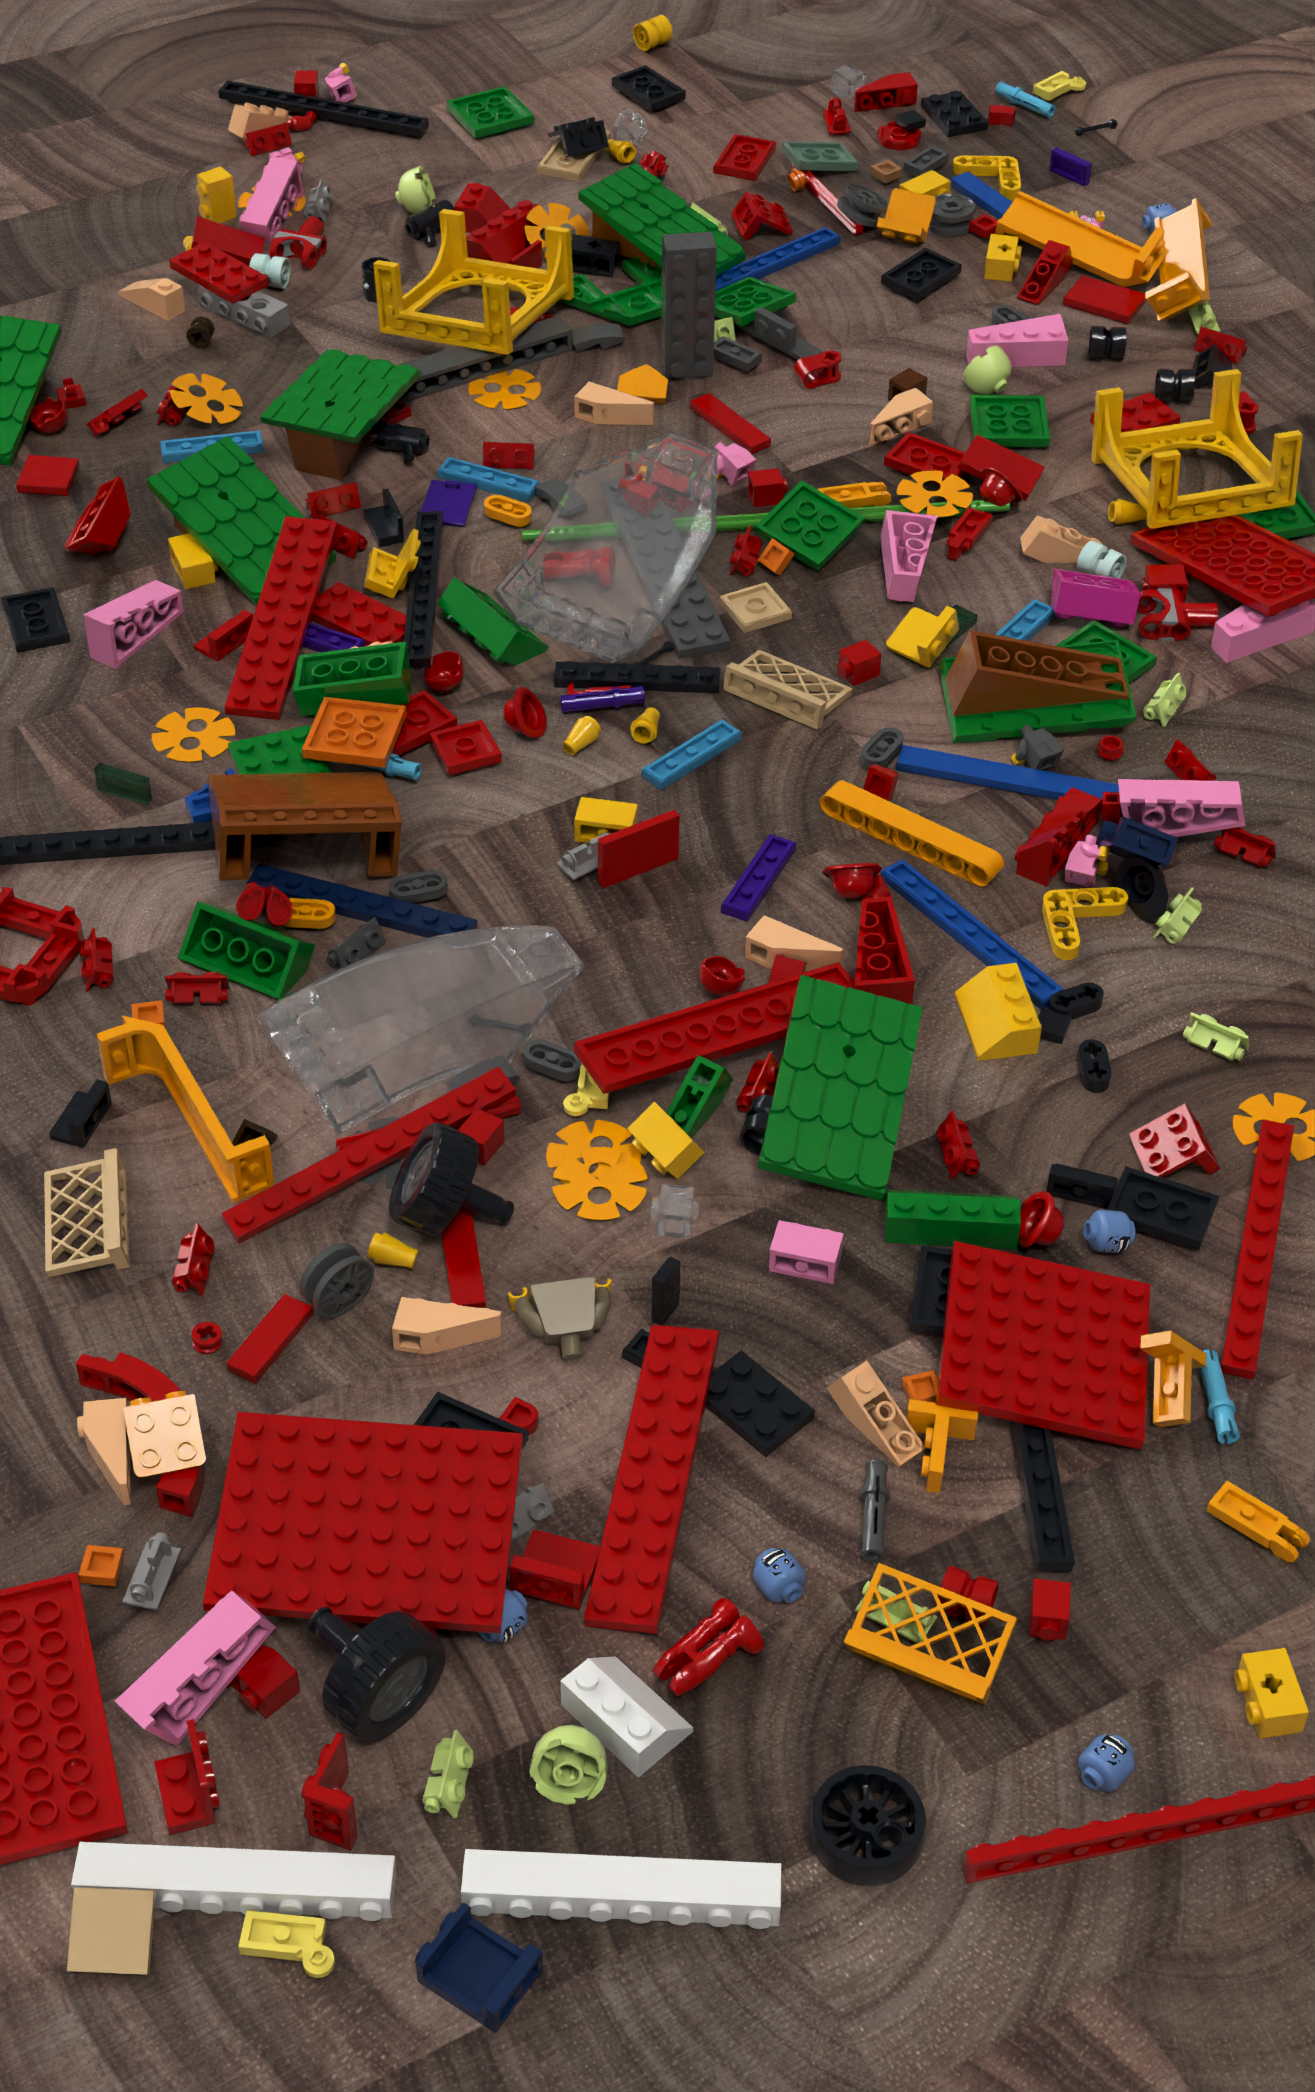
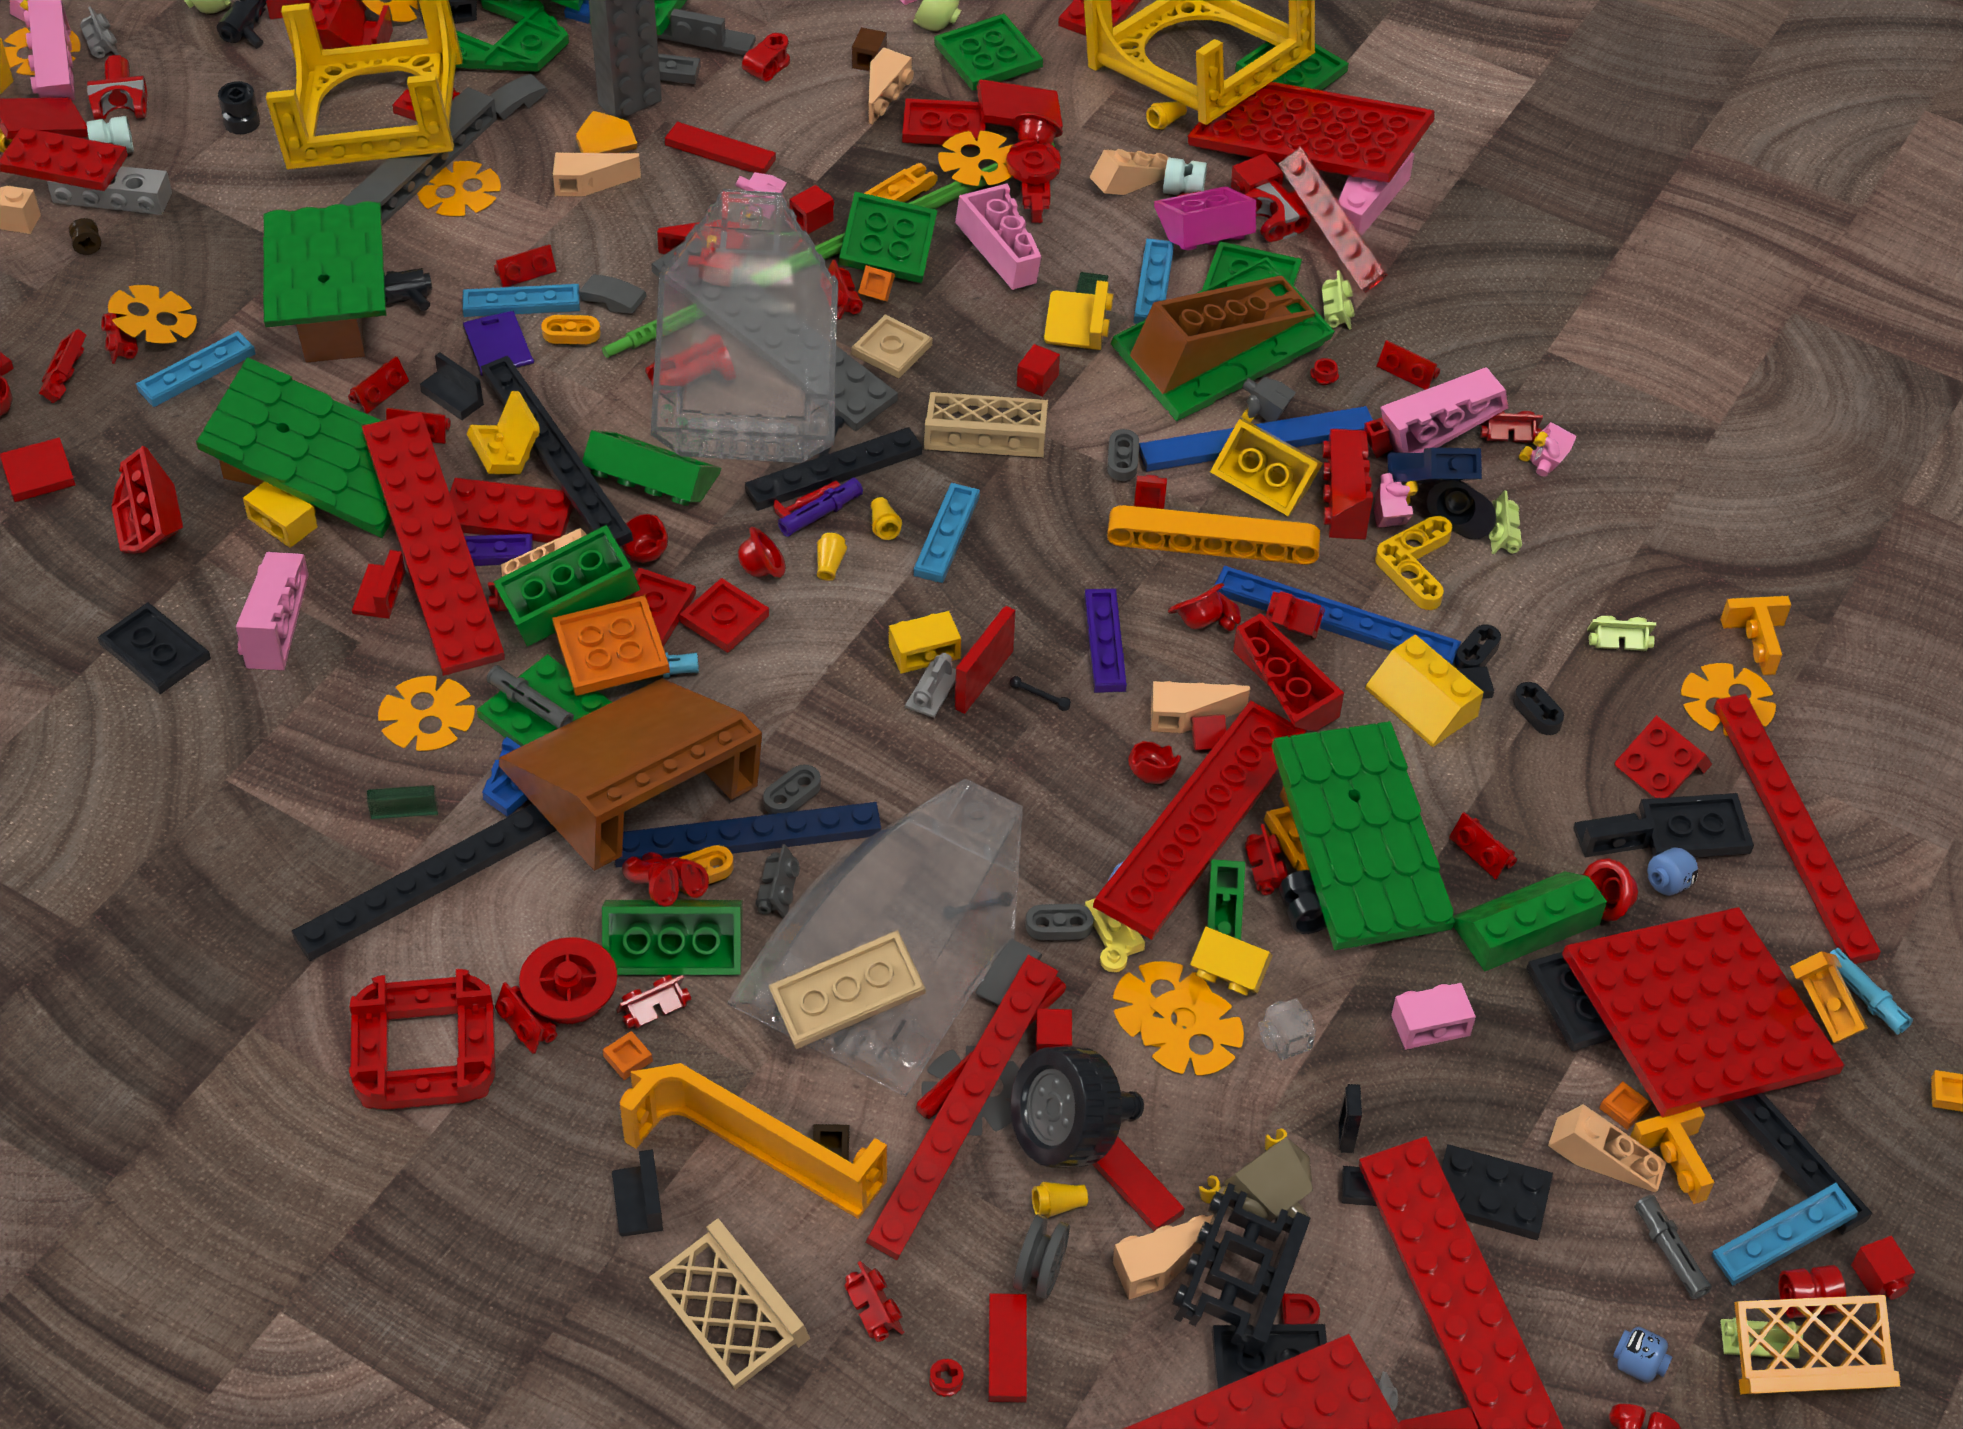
camera: 30 degrees left, 5 degrees up
(142, 948) = (568, 979): none -> red wheel
(262, 739) = (502, 679): none -> dark grey pin
(329, 1027) = (847, 989): none -> tan tile
(496, 1377) = (1268, 1279): none -> black fence
(687, 910) = (1063, 702): none -> black hinge
(926, 911) = (1294, 614): none -> red brick
(976, 509) = (1033, 162): none -> red tile
(980, 1542) = (1784, 1234): none -> dark azure tile
(994, 797) = (1266, 467): none -> yellow slope
(1204, 634) = (1332, 220): none -> clear red plate
(1267, 873) = (1552, 447): none -> bright pink piece

